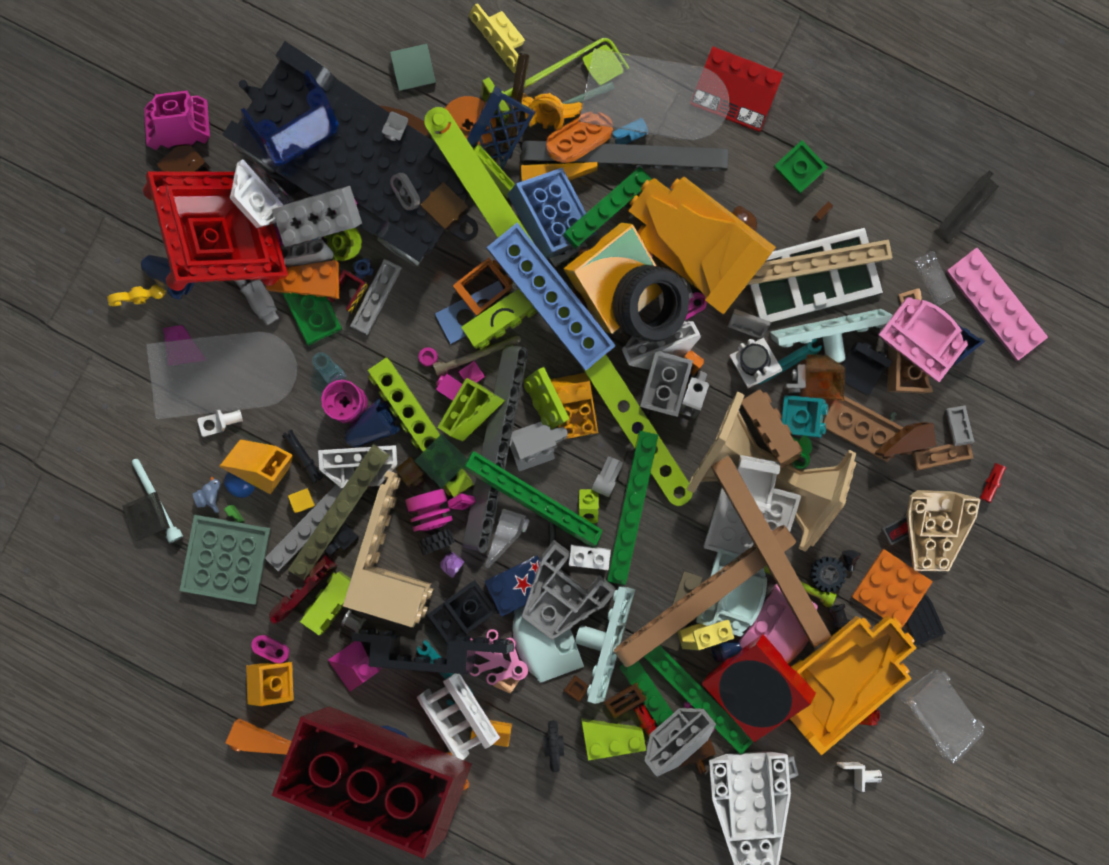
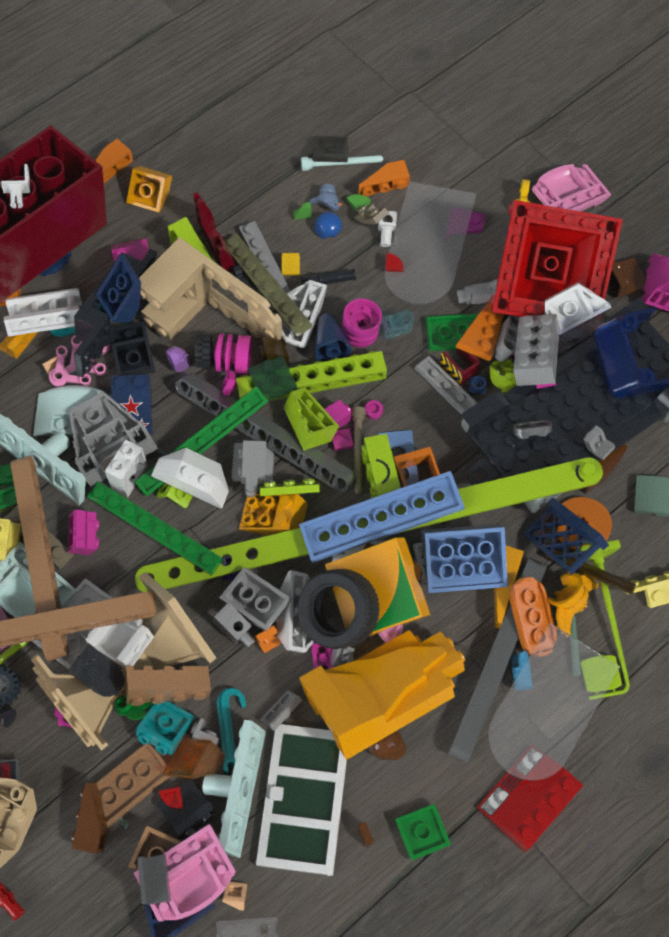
camera: 110 degrees right, 20 degrees down
(102, 252) = (571, 188): none -> bright pink slope
(156, 440) = (388, 178): none -> orange slope
(198, 463) = (357, 201): none -> bright green tile
(213, 442) = (370, 214): none -> dark tan slope
(225, 559) = (267, 193): sand green plate -> none
(258, 464) = (336, 239): light orange slope -> none
(260, 398) = (393, 263): none -> red tile
(270, 649) = (175, 198): dark pink plate -> none
(373, 783) = (16, 189): none -> white bracket
(424, 639) = (120, 292): none -> dark blue slope
(444, 205) = (507, 459): clear orange piece -> none
(500, 178) = (529, 523): lime plate -> none
(508, 530) = (183, 400): clear slope -> none
(569, 493) = (193, 475): none -> white wedge
(576, 688) = (19, 419): reddish brown tile -> none
(606, 208) = (451, 611): green plate -> none
(606, 479) = (190, 514): light grey piece -> none
(663, 570) = (82, 532): none -> dark pink brick
(755, 361) = (239, 698): piece -> none
(789, 490) = (98, 672): none -> black window
(823, 261) = (313, 810): tan plate -> none
(859, 383) = (172, 797): none -> red tile
(940, 360) = (154, 879): none -> dark grey panel
(941, 456) = (59, 859): medium nougat tile -> none
(959, 426) = (80, 887): light grey plate -> none

